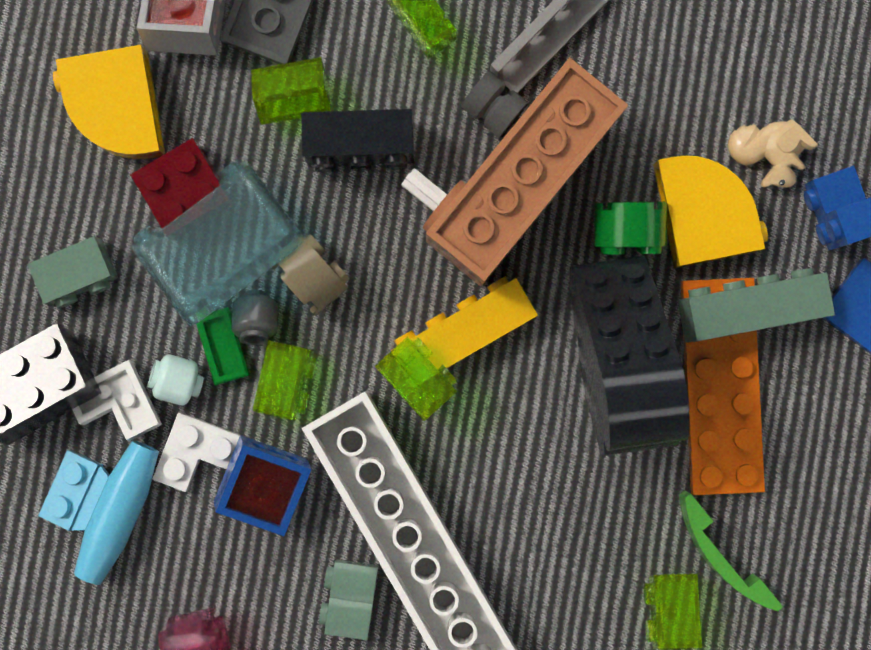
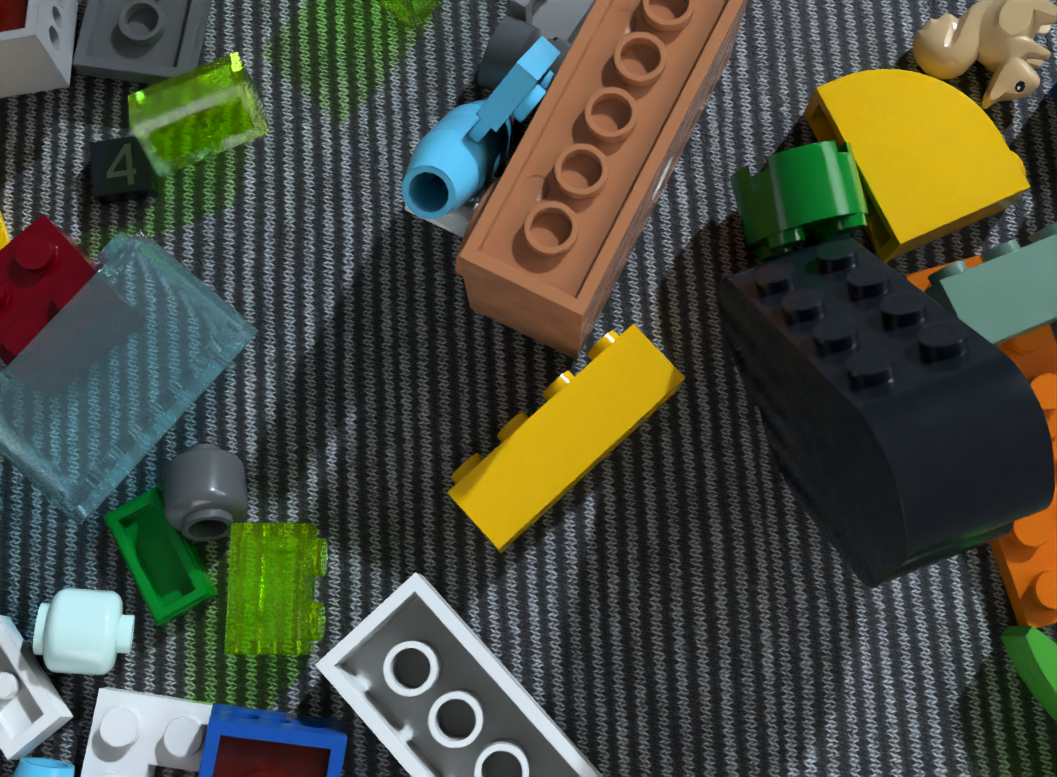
camera: 10 degrees left, 10 degrees down
(237, 110) = (121, 171): none -> black tile
(311, 276) = (283, 393): dark tan brick -> none
(358, 139) = (315, 157): black brick -> none
(417, 378) = (501, 525): clear neon green brick -> none
(447, 154) = (474, 138): none -> medium azure plate

